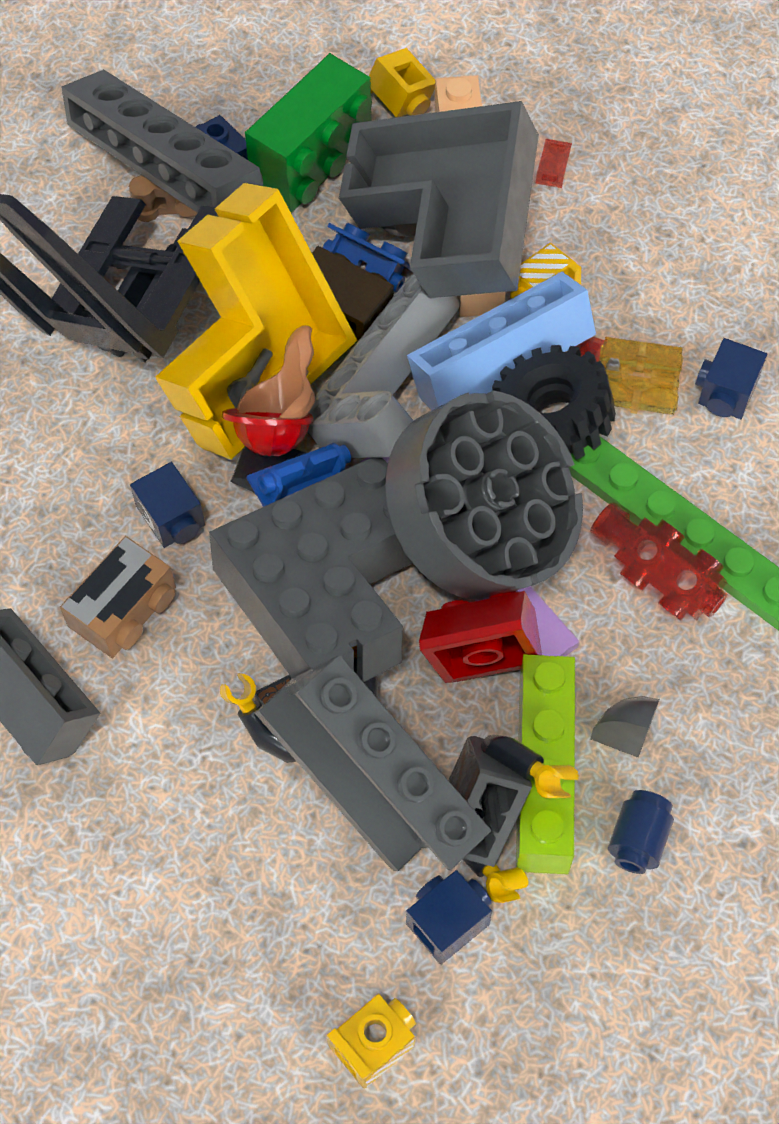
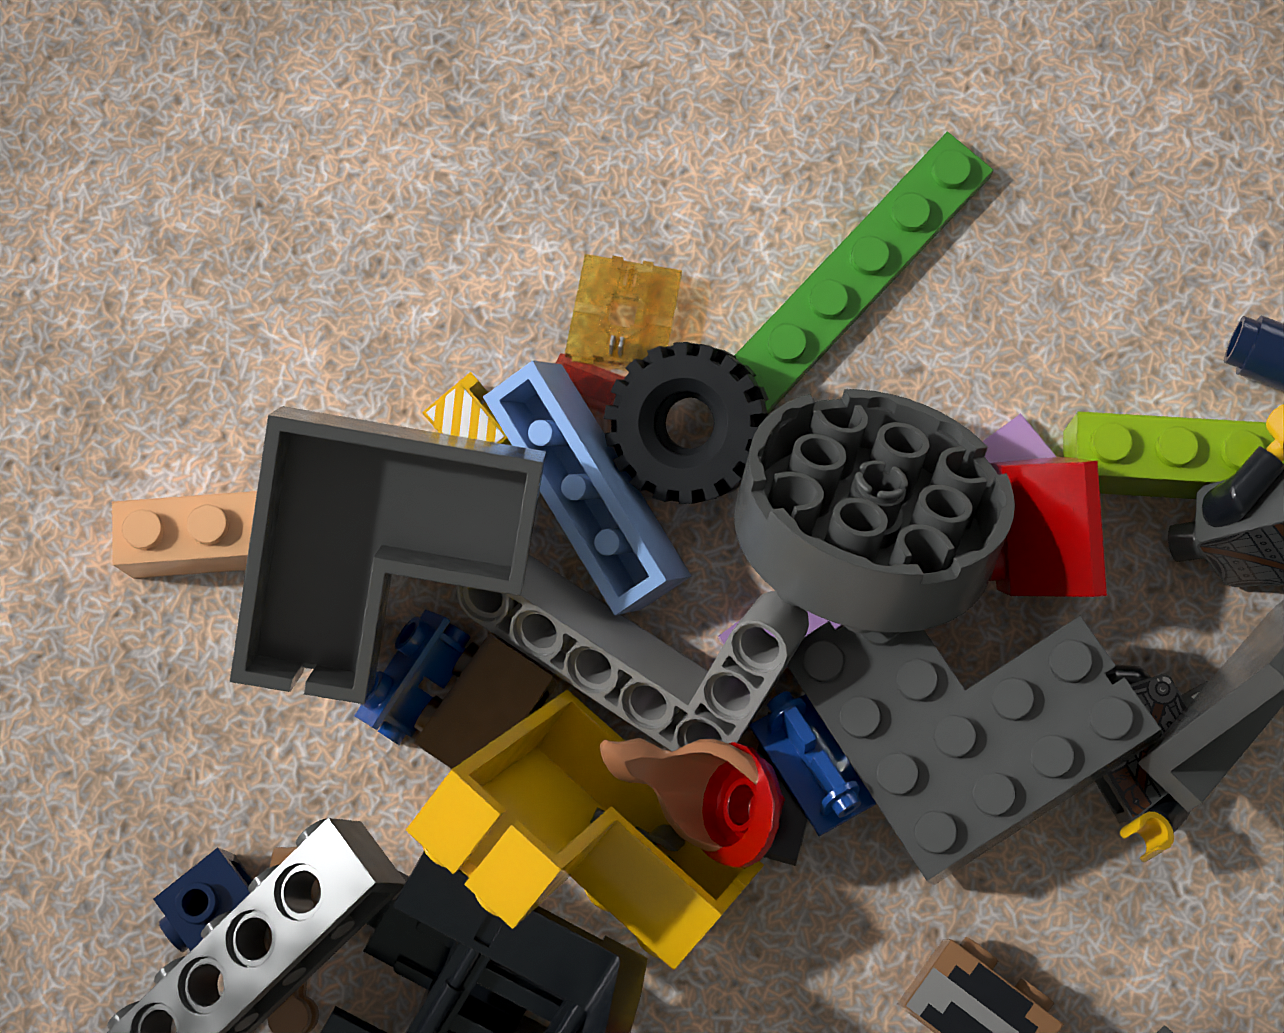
camera: 85 degrees left, 15 degrees up
(168, 505) = (837, 951): dark blue brick -> none
(310, 130) = (202, 753): green brick -> none
(402, 83) = (96, 620): yellow brick -> none
(553, 163) = (240, 406): clear red piece -> none
(626, 724) = (1139, 355): dark grey brick -> none
(666, 566) = (924, 282): clear red brick -> none
(730, 378) = (639, 196): dark blue brick -> none

